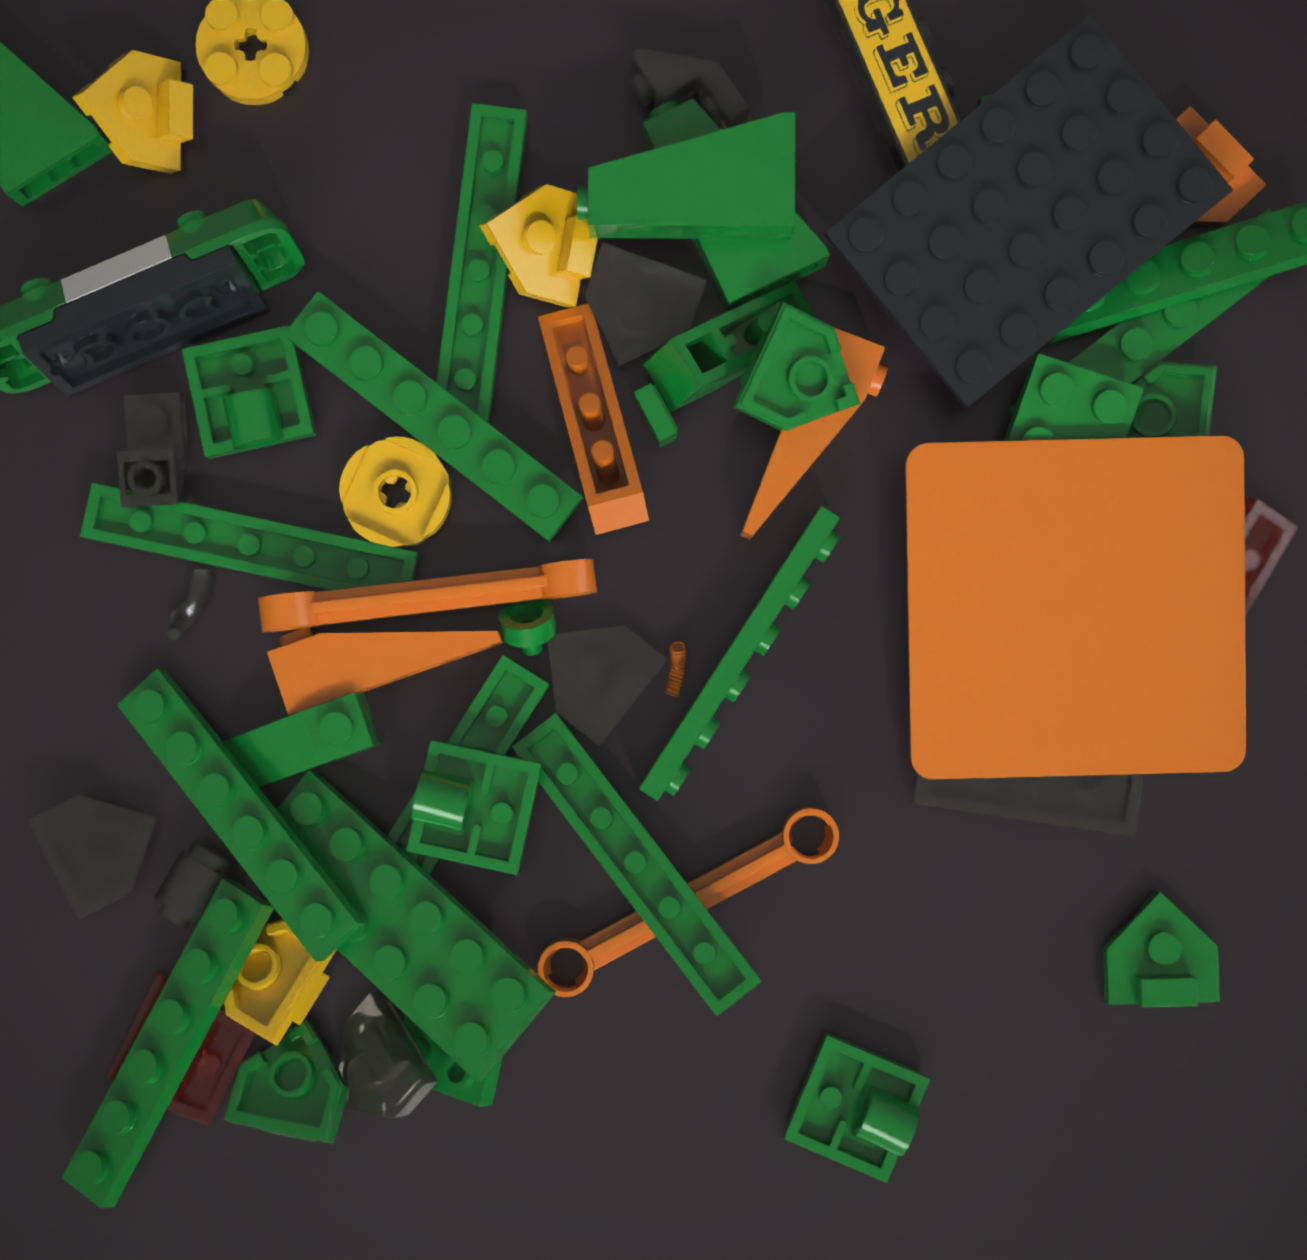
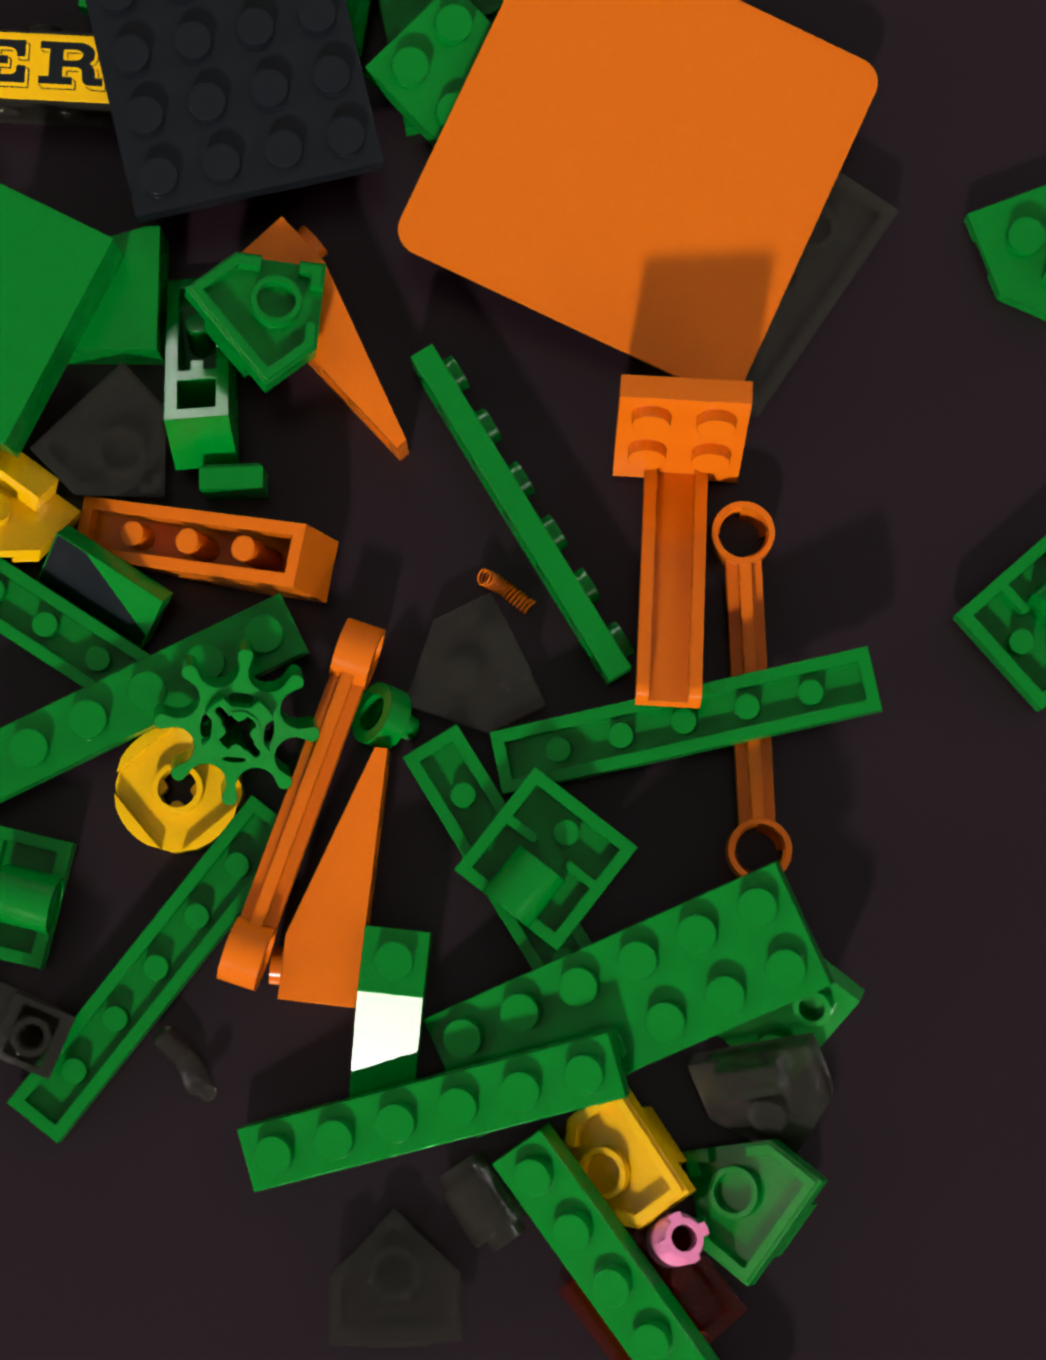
camera: 60 degrees left, 5 degrees down
(229, 1034) = (660, 1243): none -> bright pink hose
(443, 520) = (231, 746): none -> green gear
(524, 355) = (104, 586): none -> tile
(854, 751) = (677, 440): none -> orange bracket

